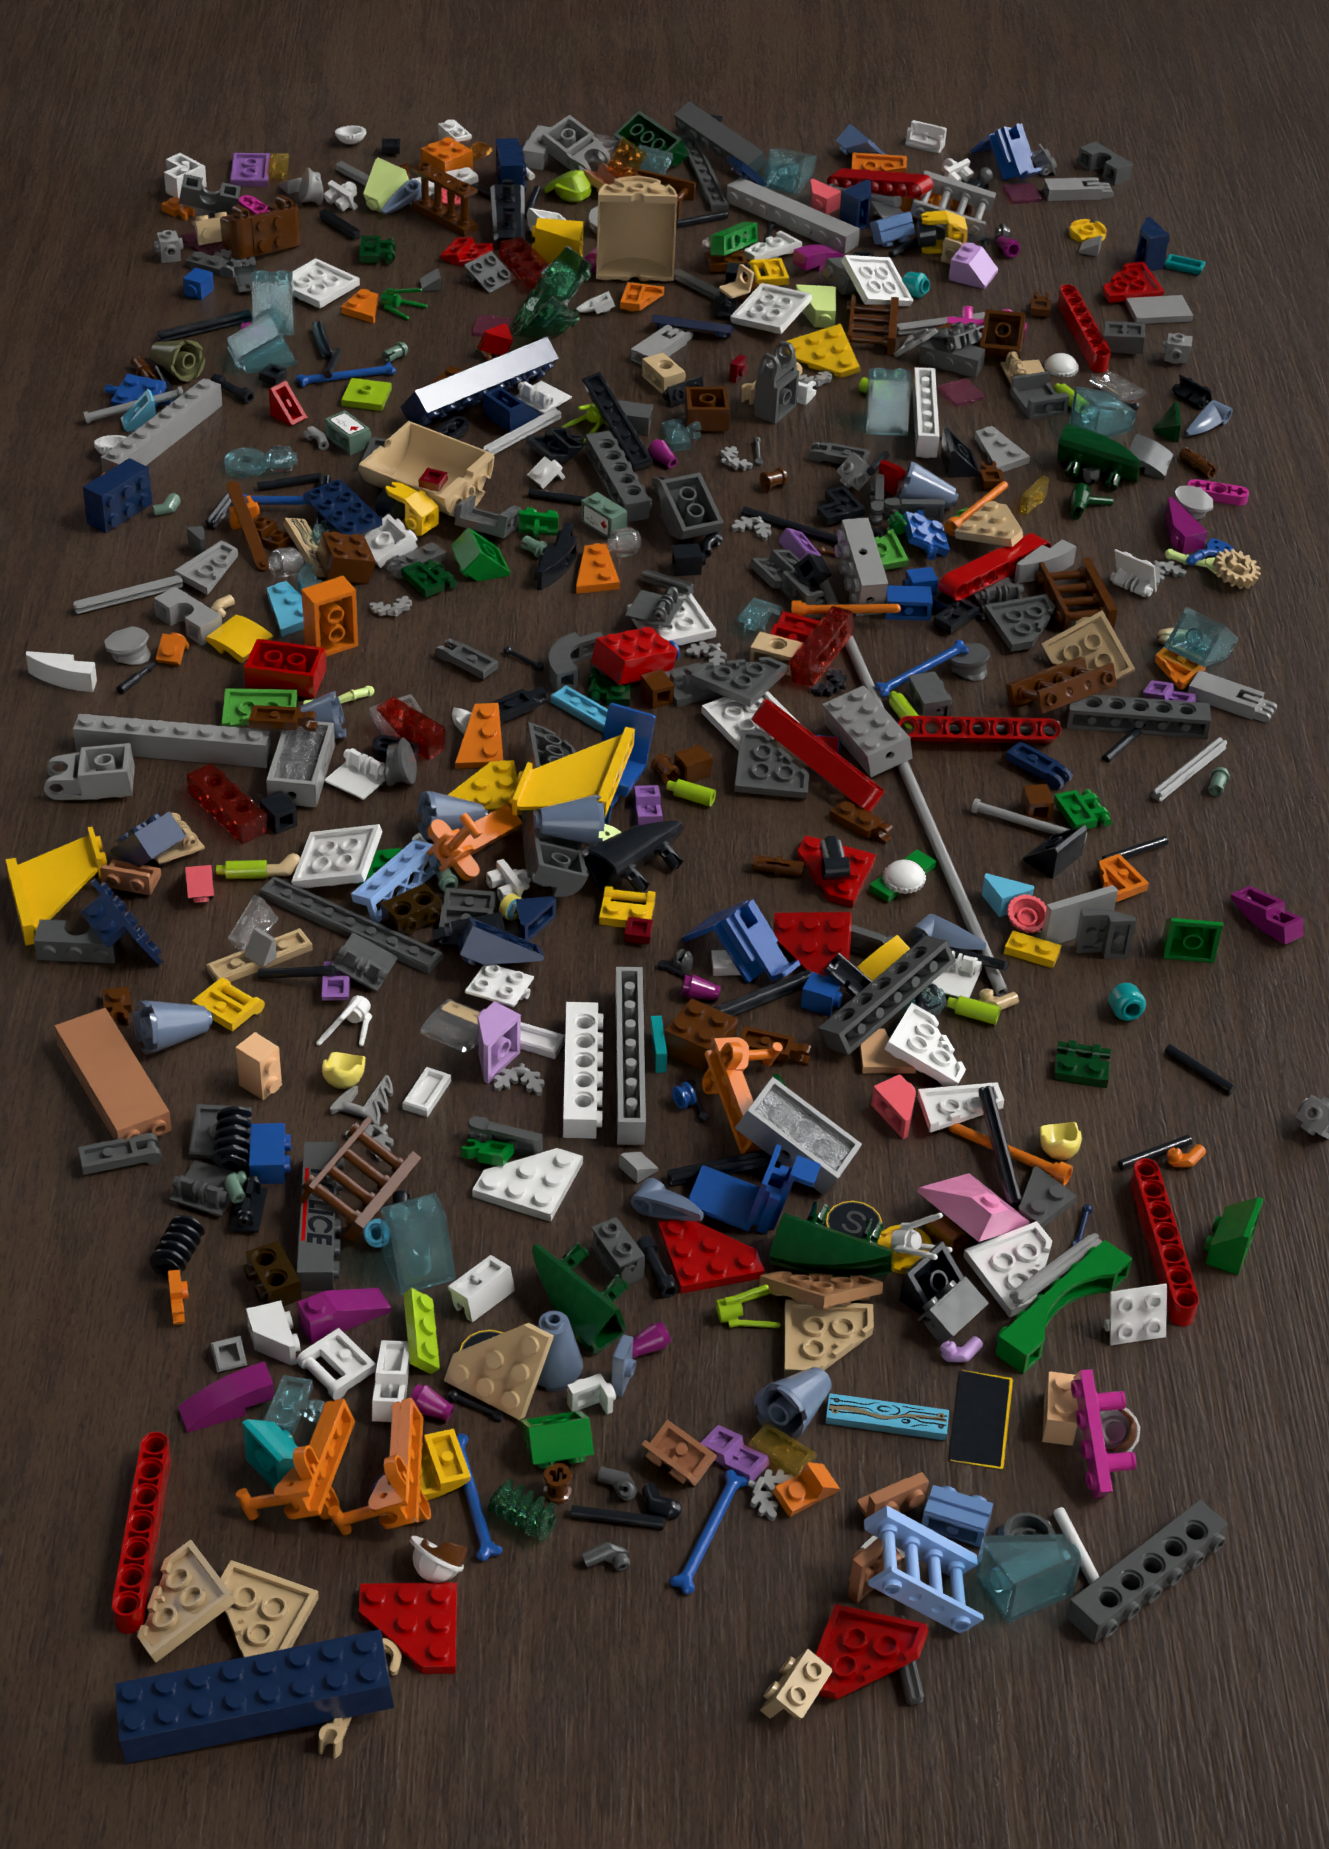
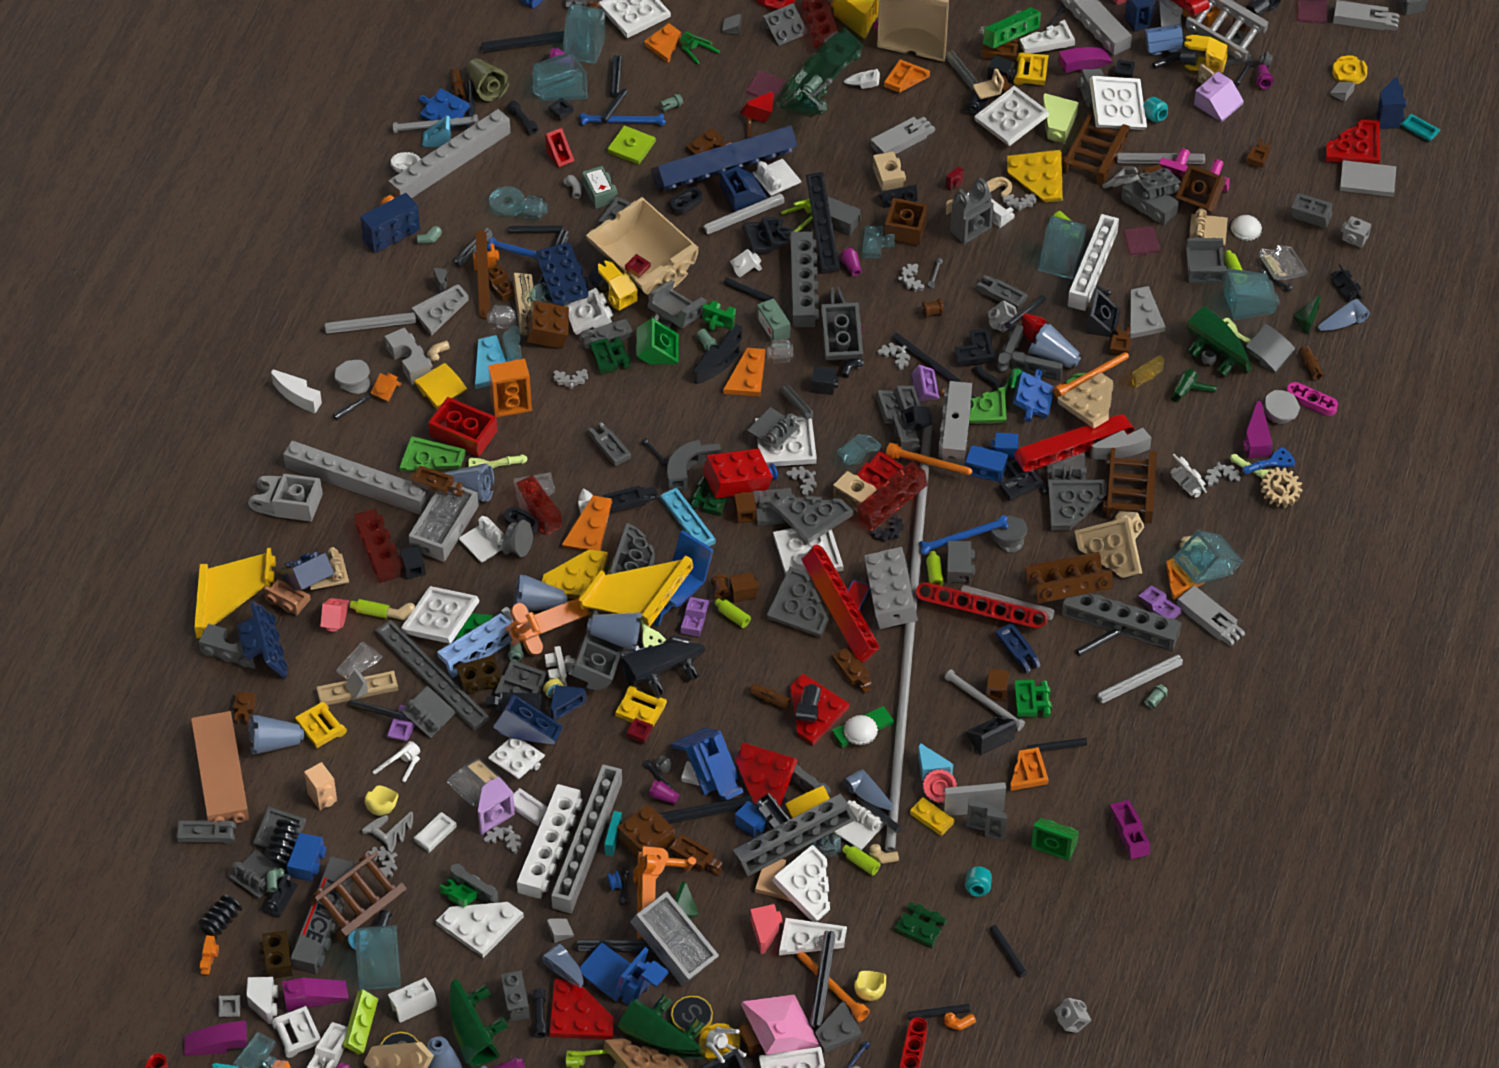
camera: 20 degrees right, 10 degrees up
(720, 330) = (958, 129): dark blue plate -> none
(1083, 328) = (1284, 190): red beam -> none

